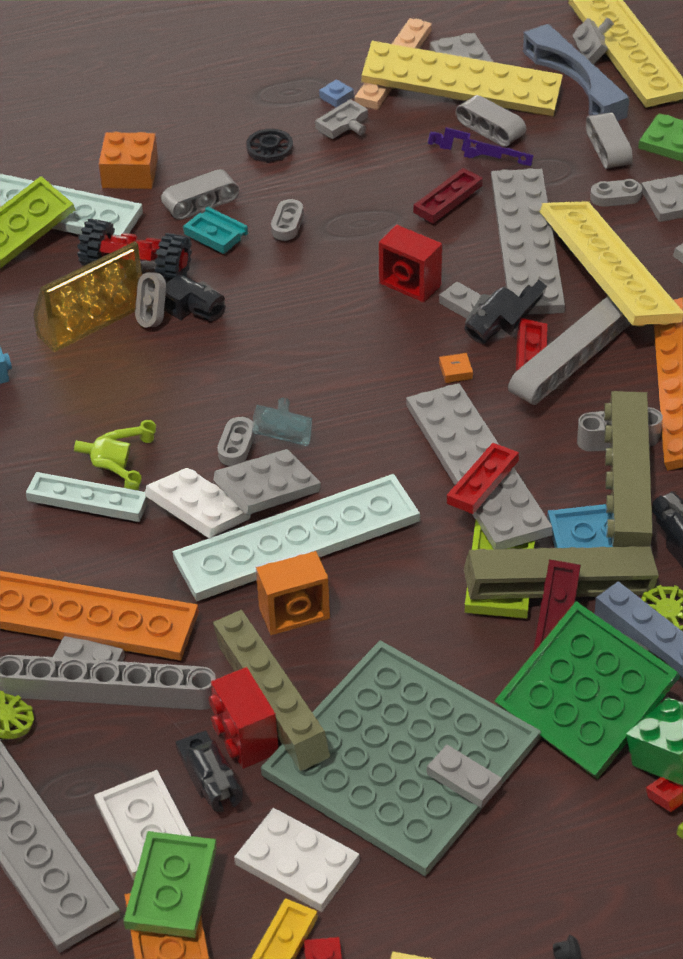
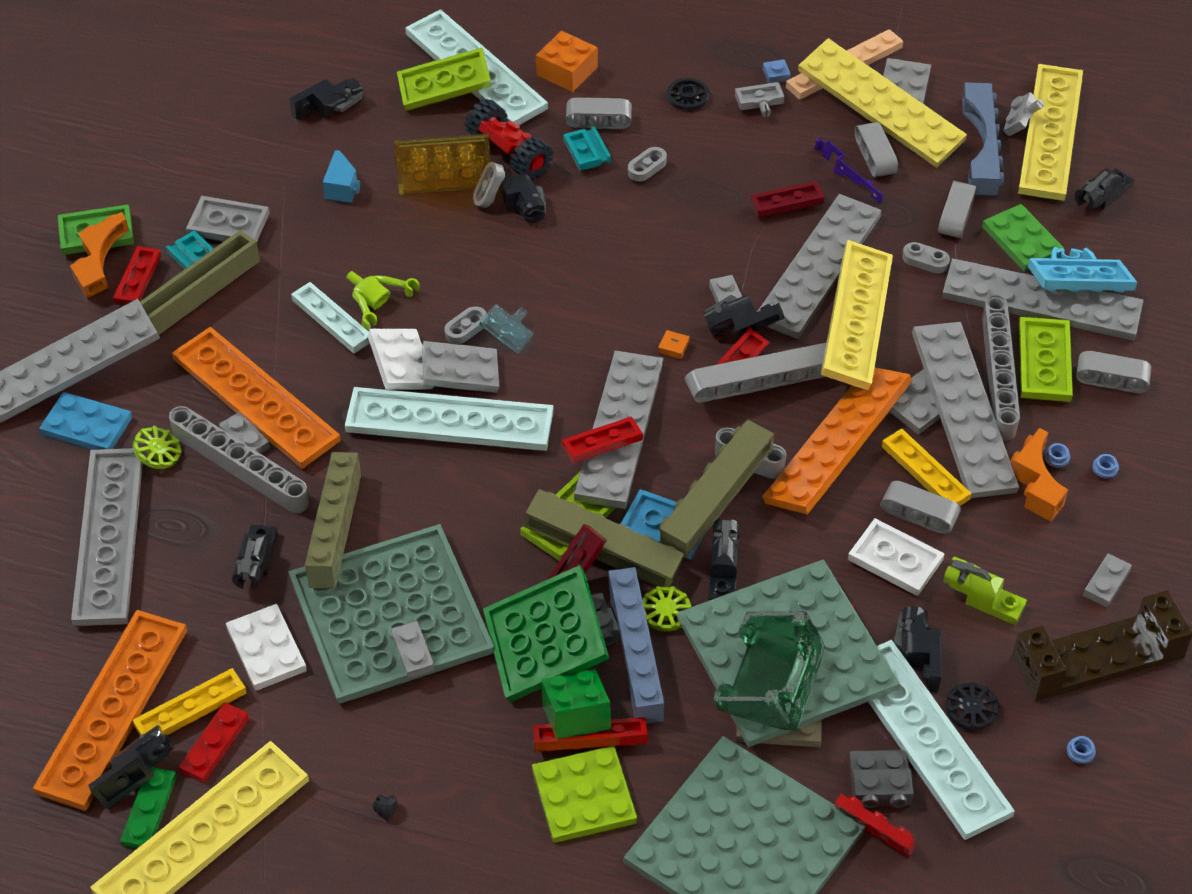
camera: 30 degrees right, 5 degrees up
(134, 810) = (187, 570): white plate -> none
(170, 884) = (165, 618): bright green plate -> none
(243, 718) = (296, 528): red brick -> none
(293, 592) = (404, 458): orange brick -> none
(410, 263) = (701, 243): red brick -> none

